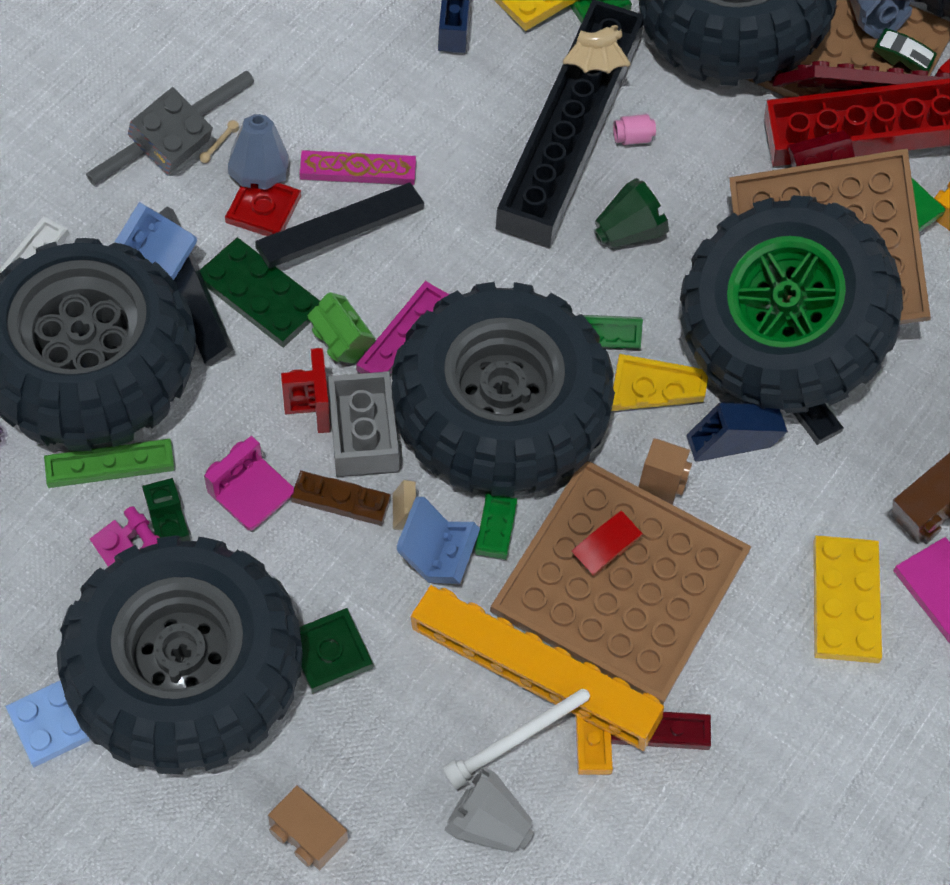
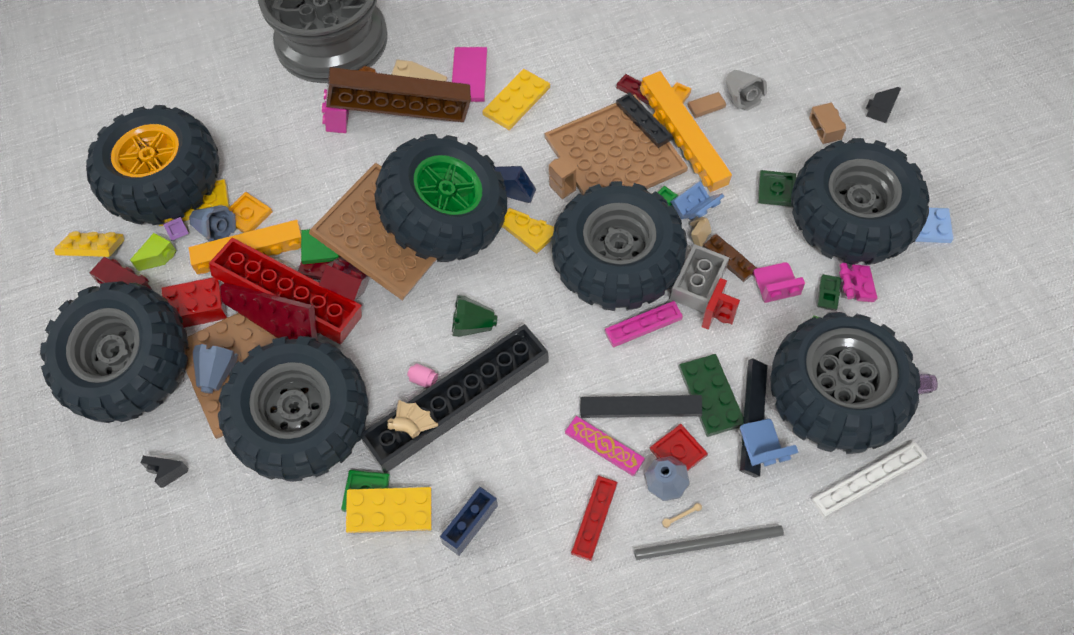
camera: 140 degrees left, 0 degrees up
(170, 130) = (716, 524): dark grey brick -> none
(319, 92) = (594, 518): none -> red tile
(340, 328) = (680, 337): bright green brick -> none
(461, 771) = (744, 112): white piece -> none
(535, 762) = (706, 104): none -> medium nougat tile
(607, 542) = (617, 157): red slope -> none
(614, 651) = (644, 120): none -> black tile
(617, 330) = (530, 266): green plate -> none
(899, 47) = (227, 331): slope -> none

